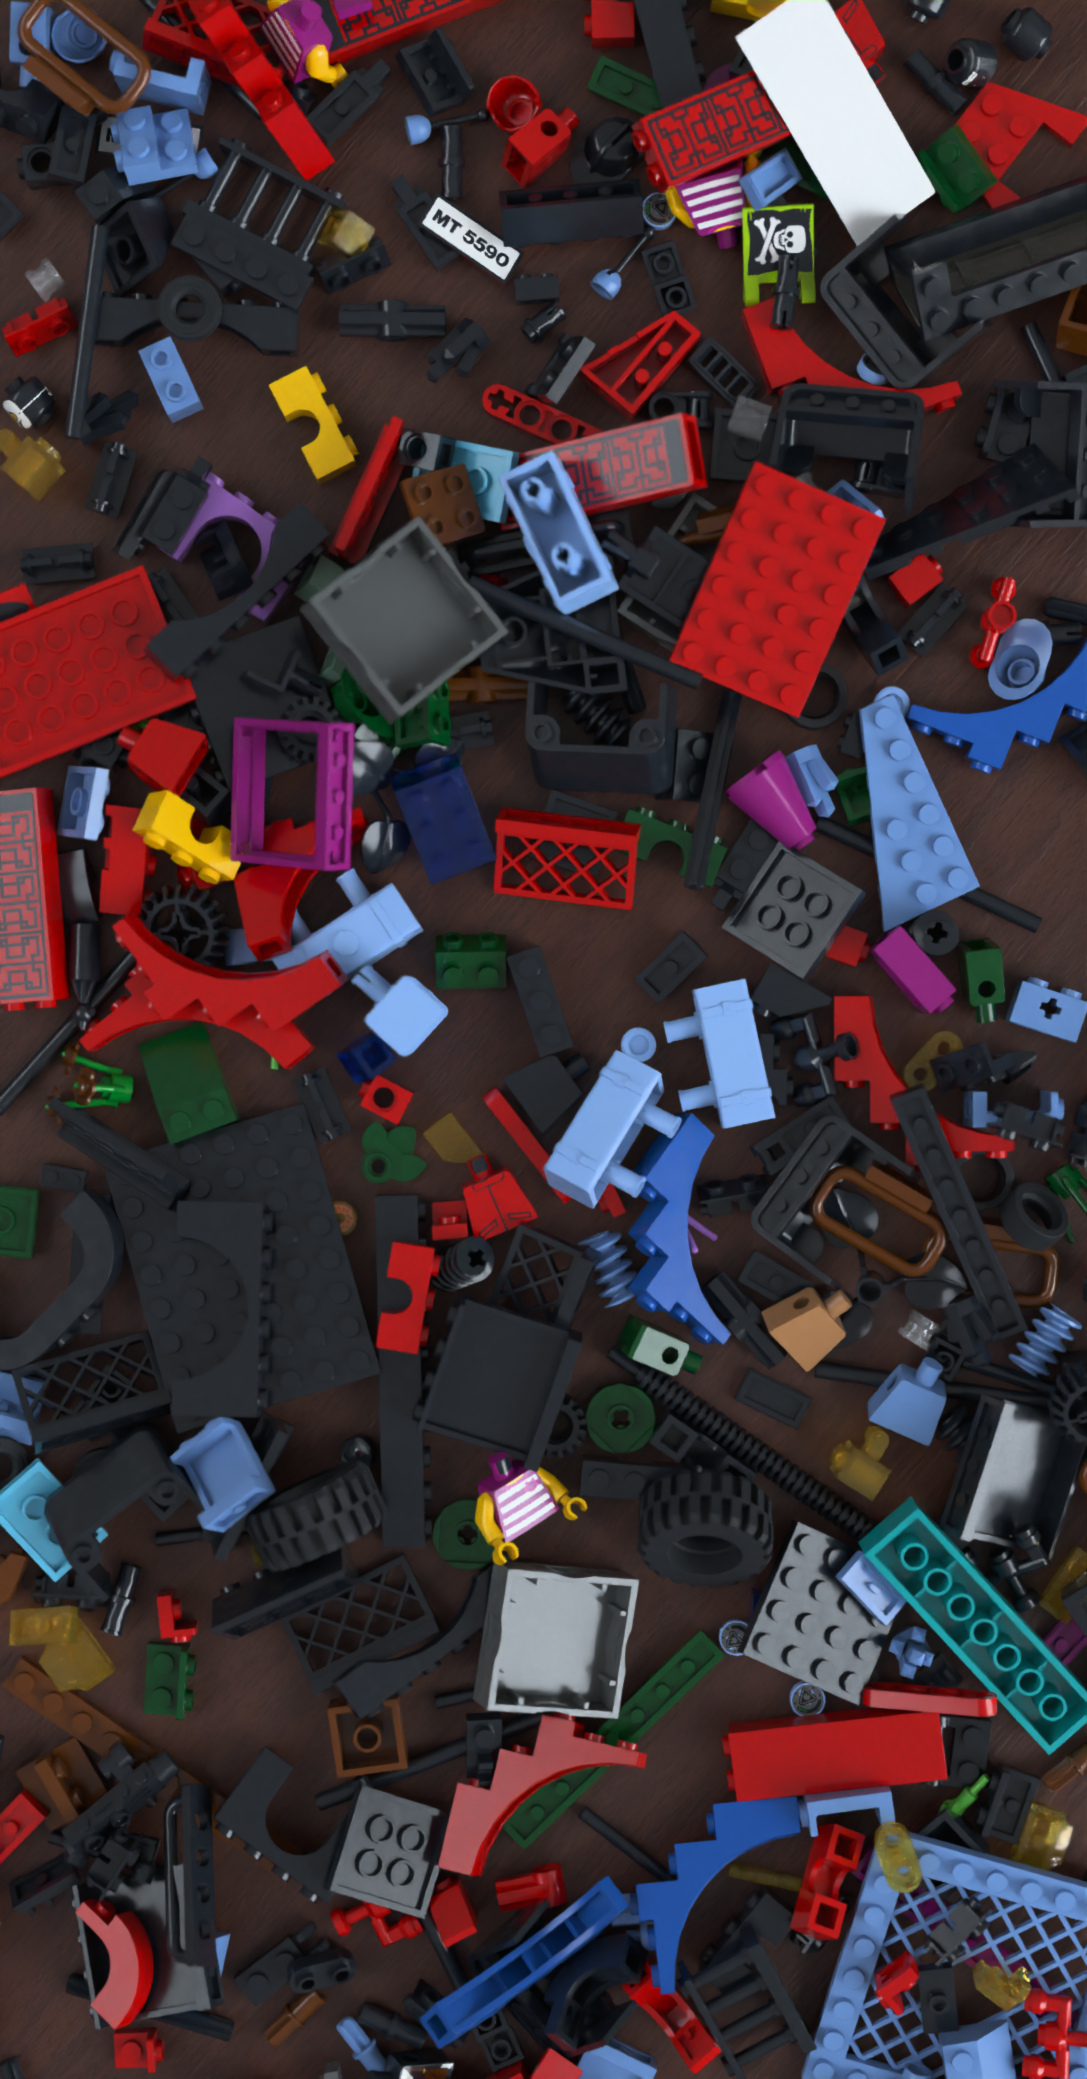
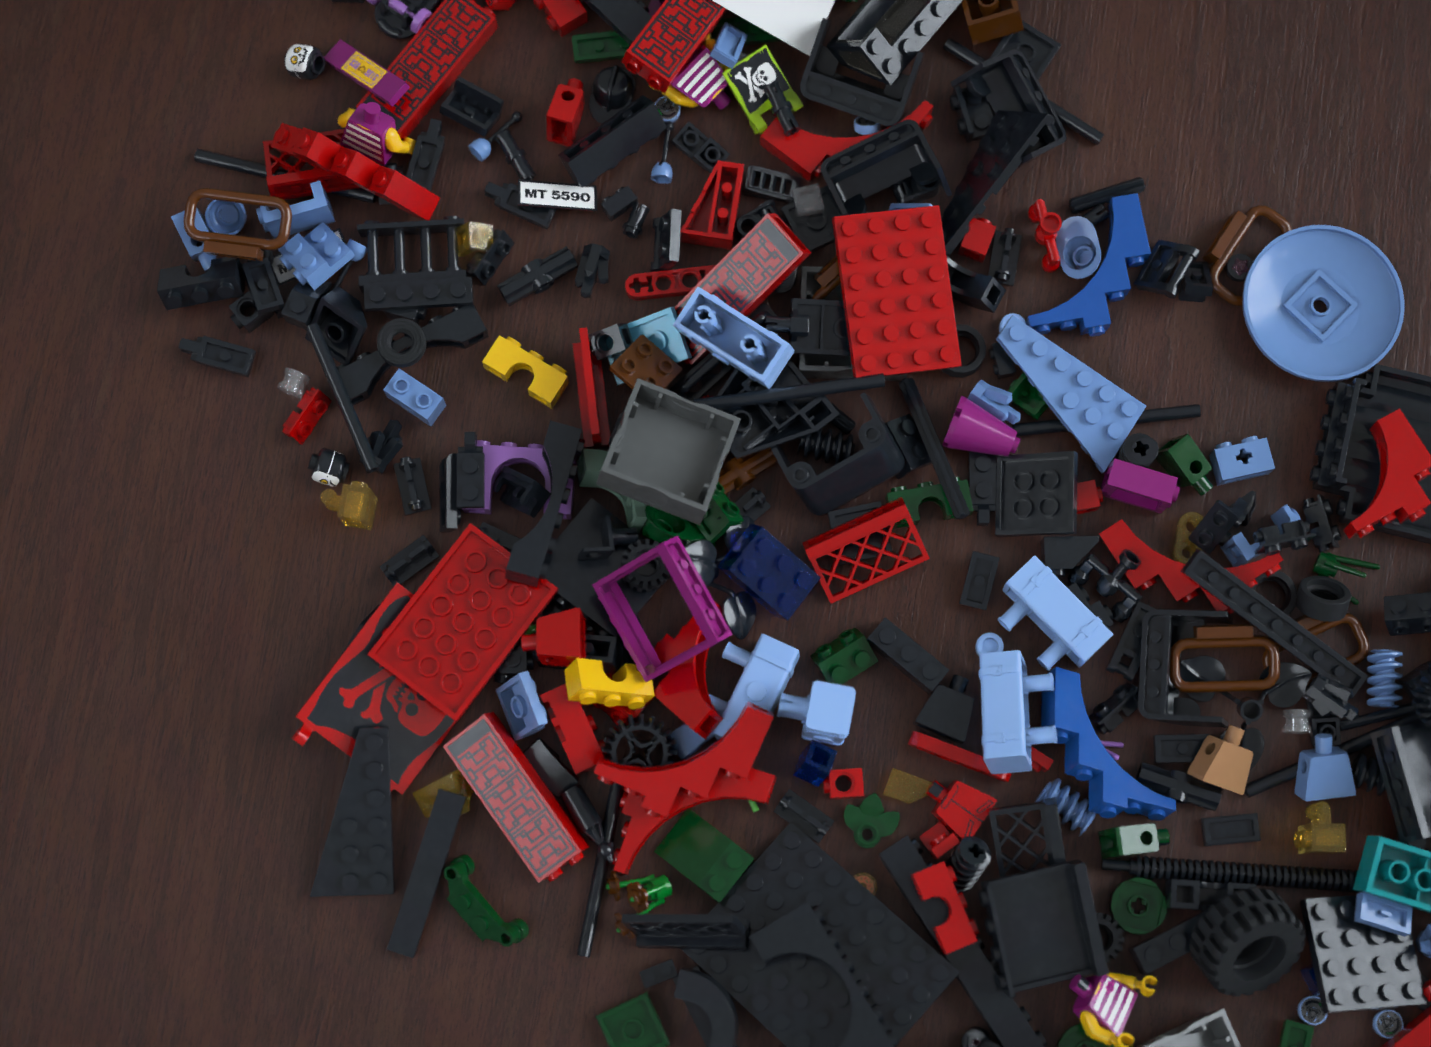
camera: 30 degrees left, 10 degrees down
(513, 102) = (533, 96): red hair -> none

